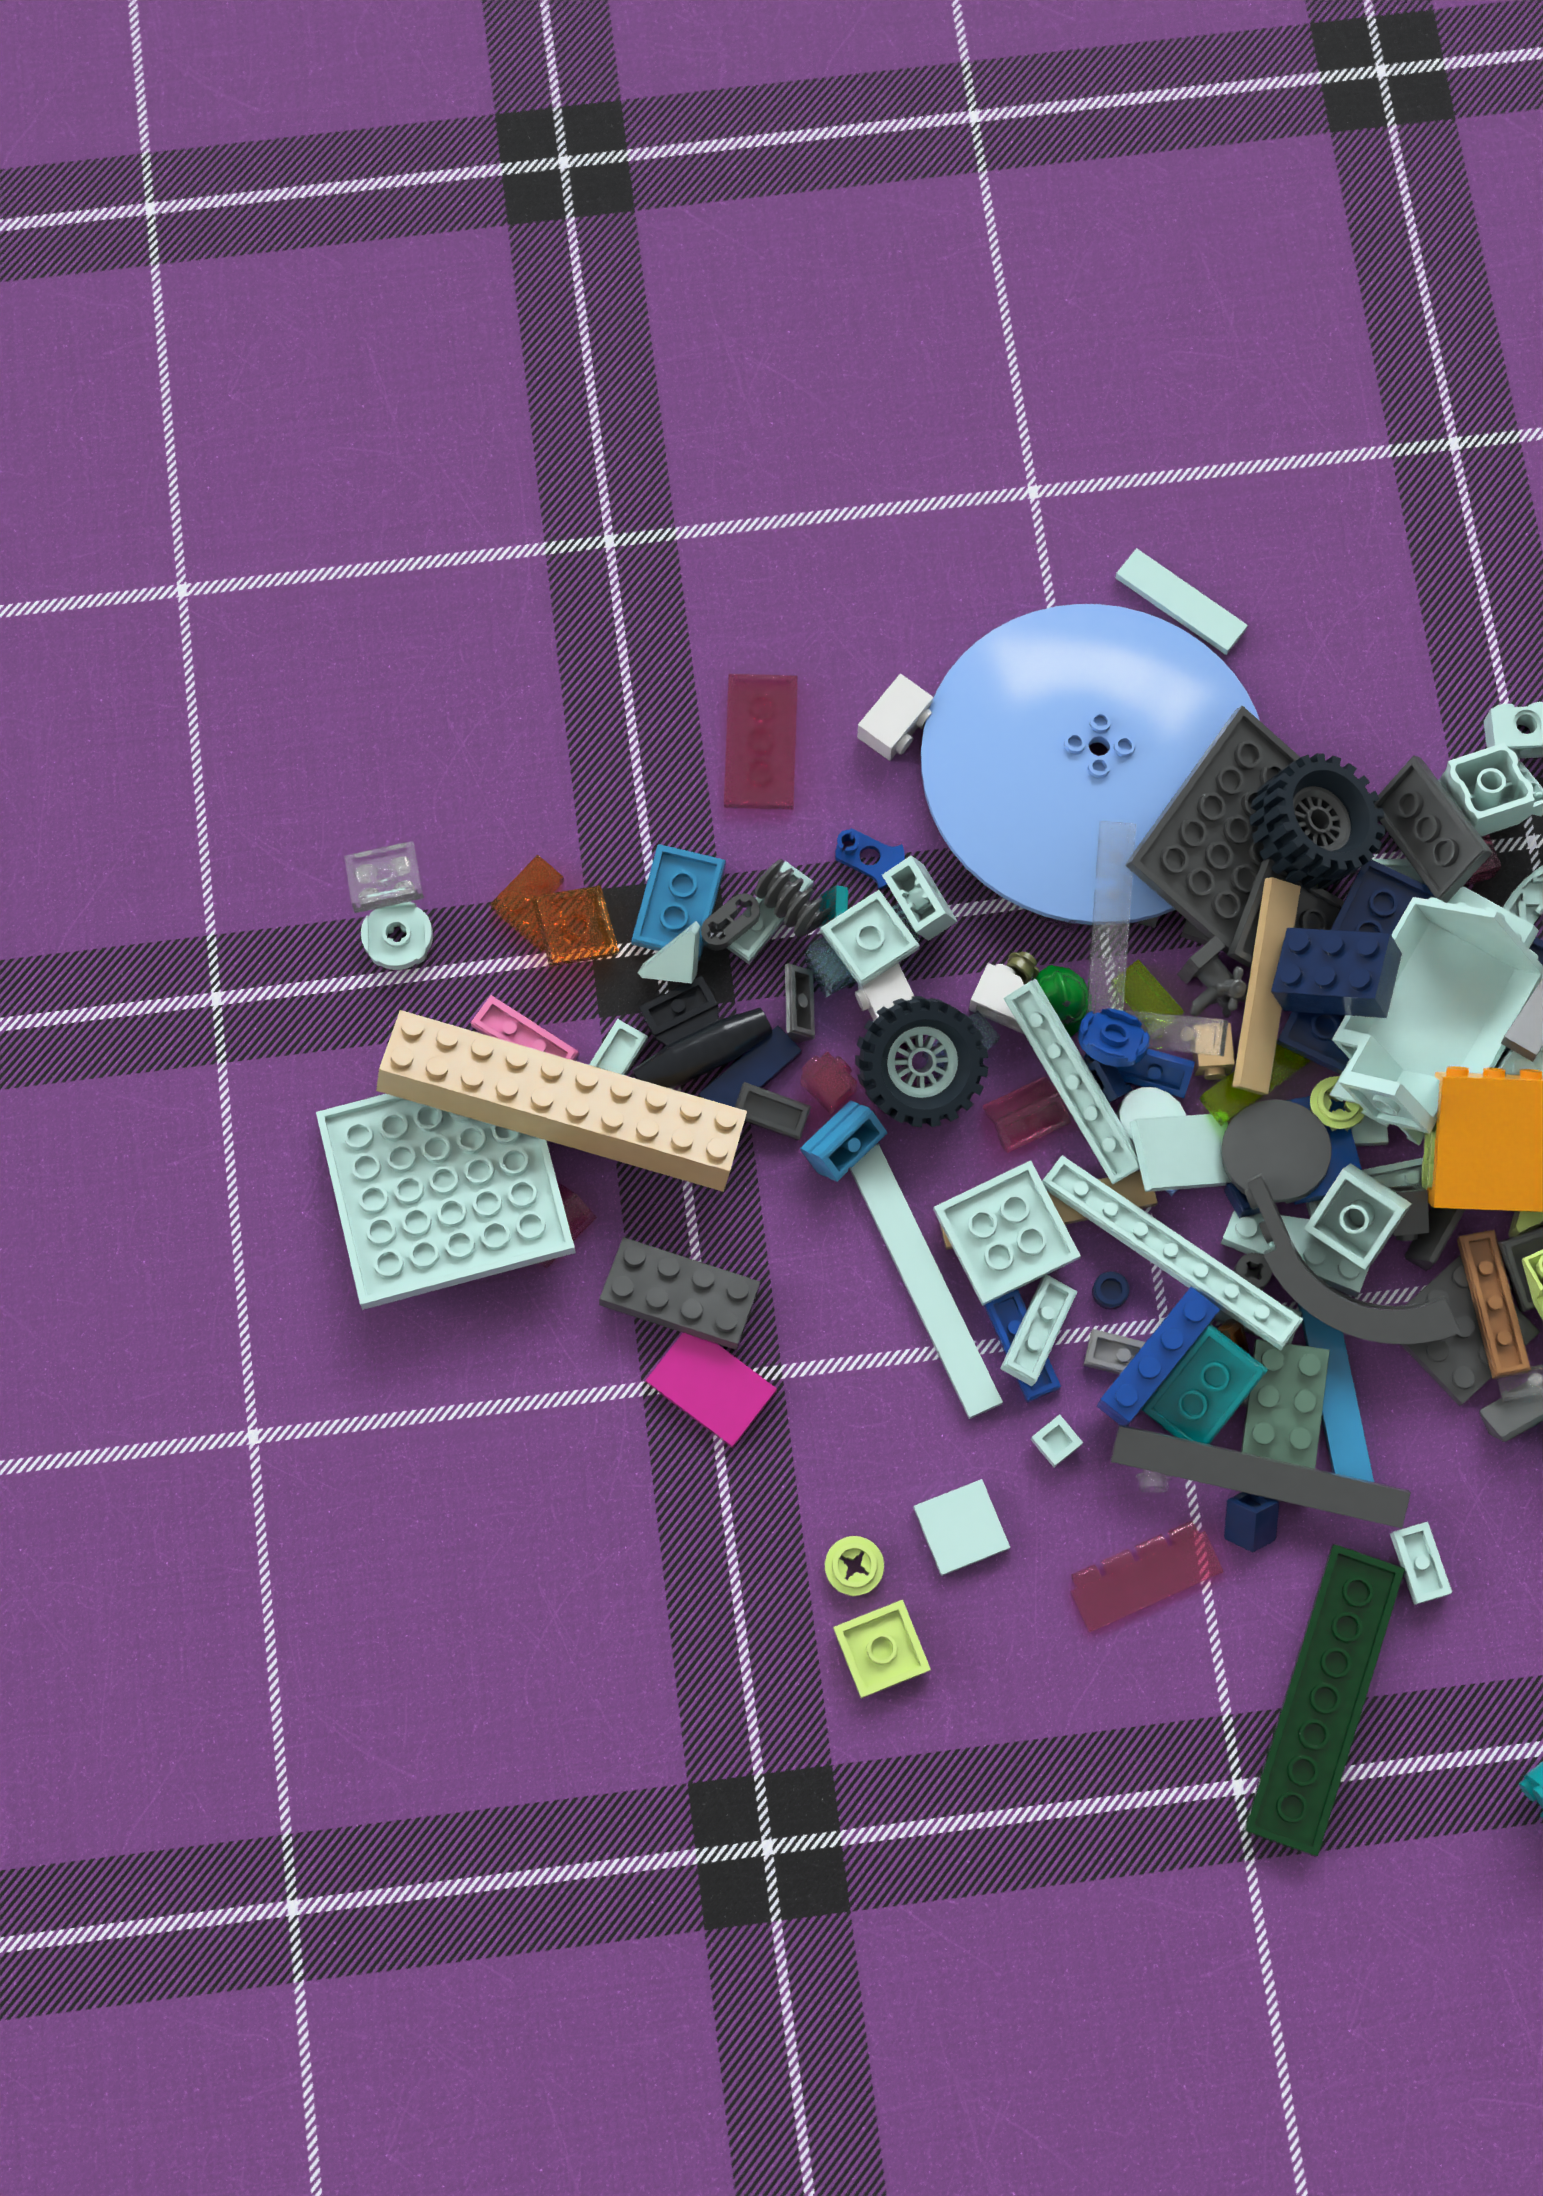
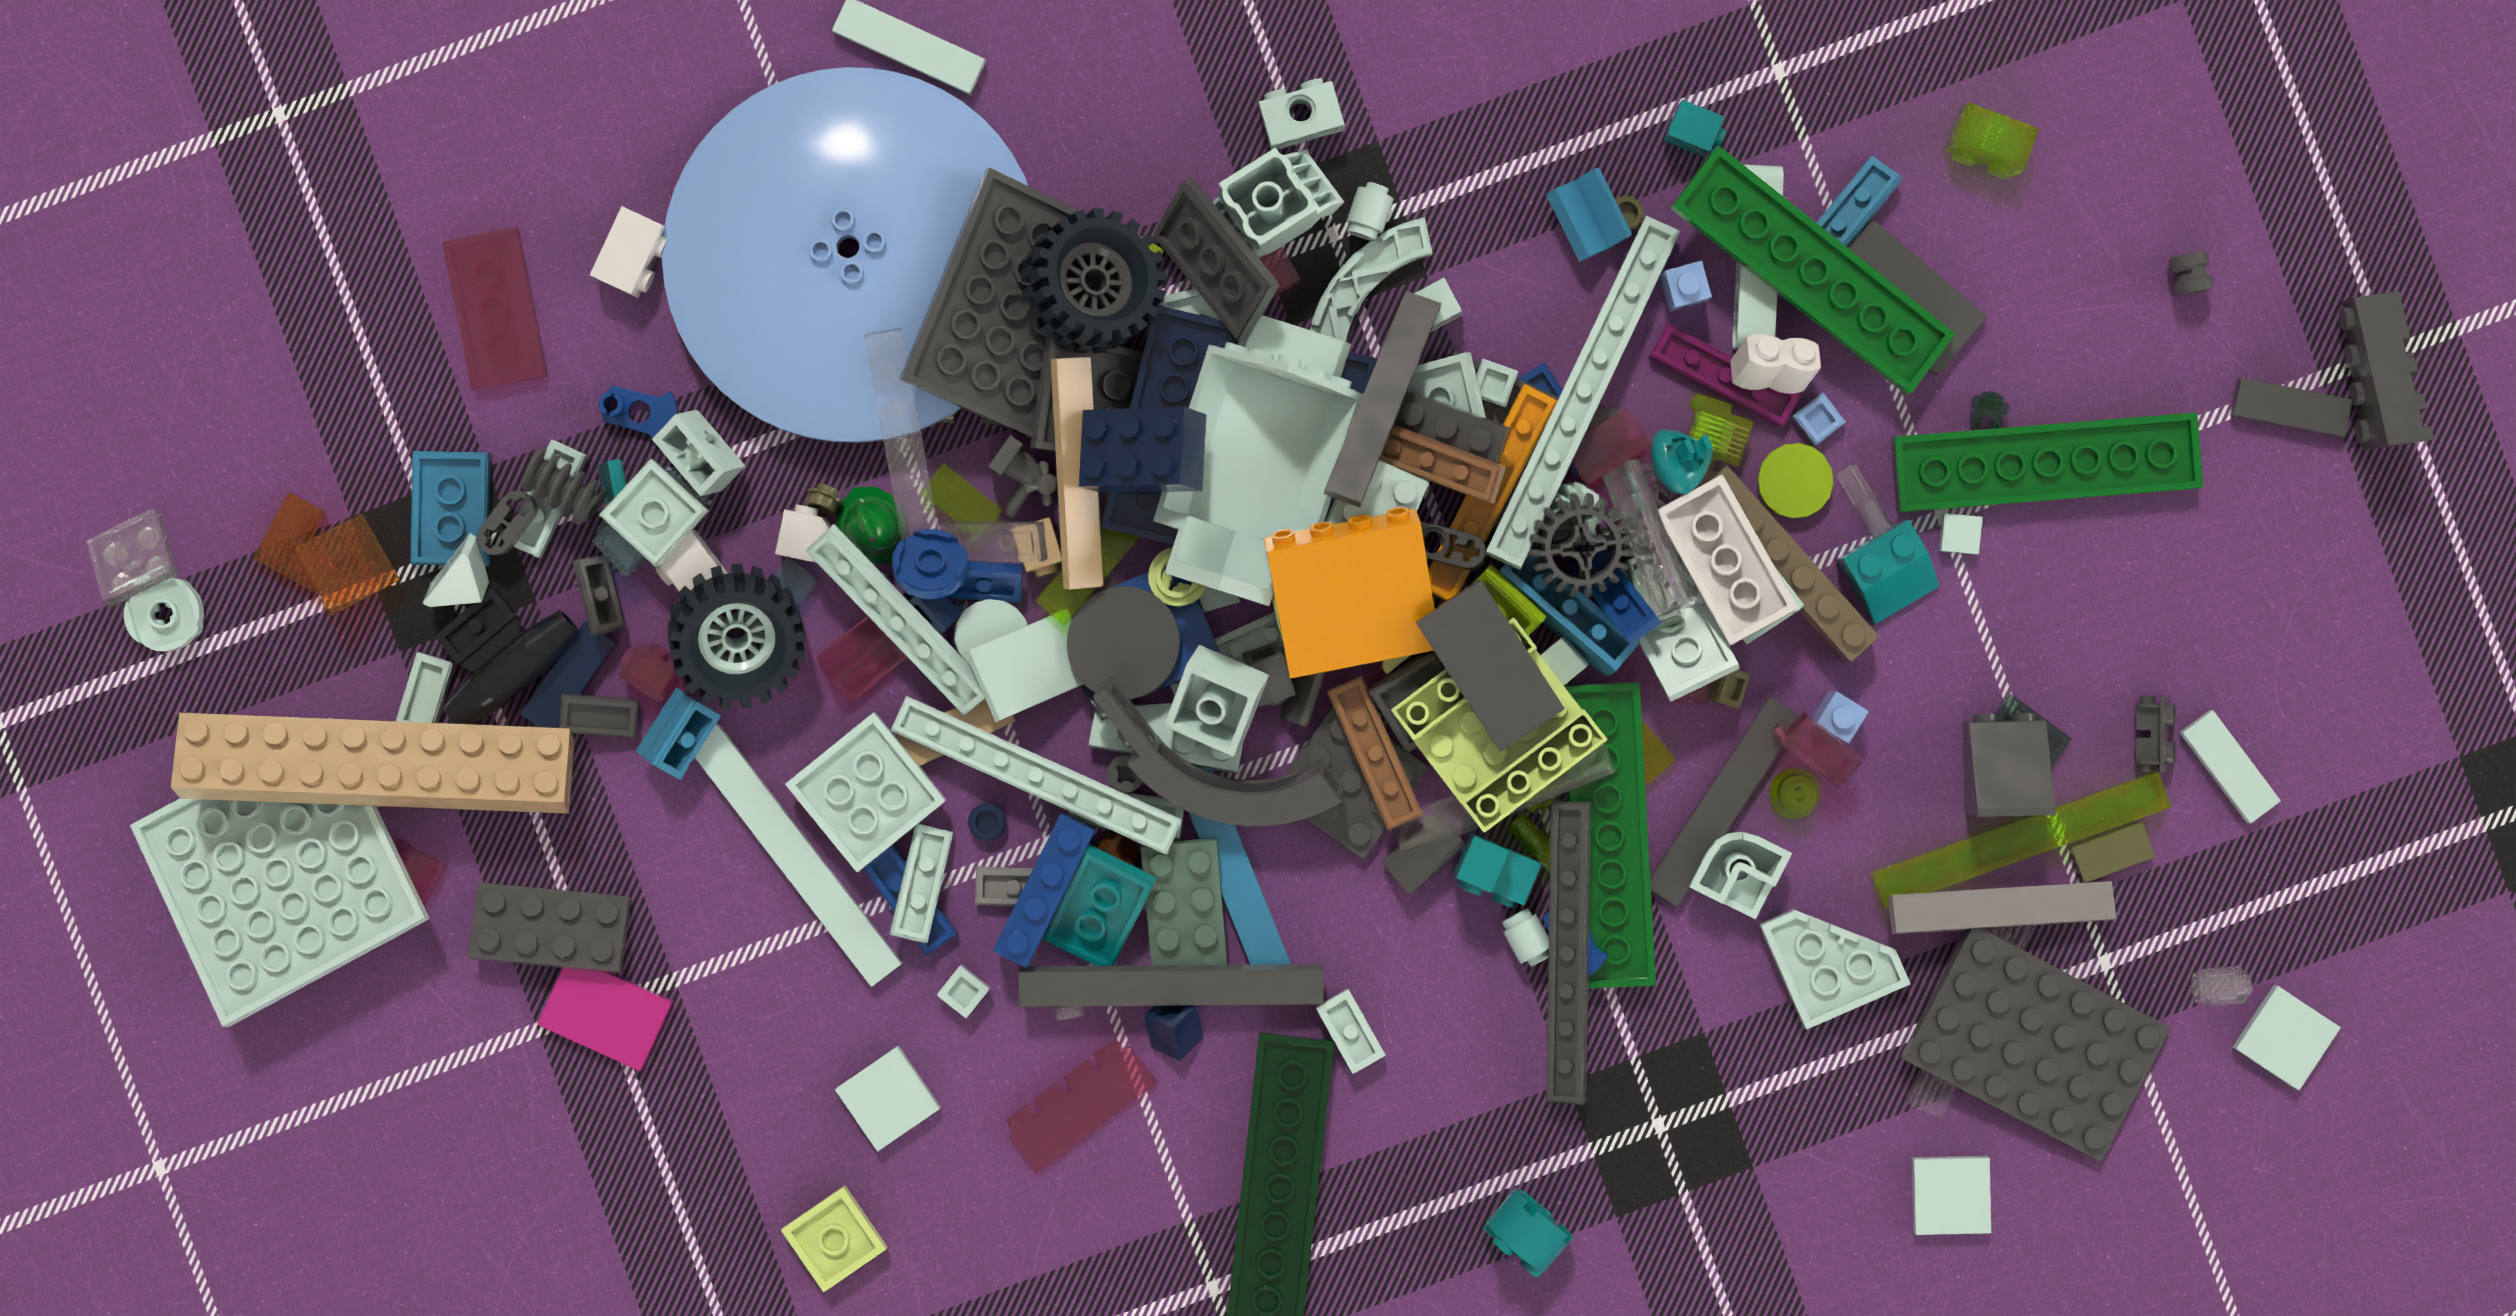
camera: 15 degrees left, 15 degrees up
(507, 1024) = (324, 692): bright pink tile -> none
(850, 1548) = (773, 1169): yellowish green gear -> none

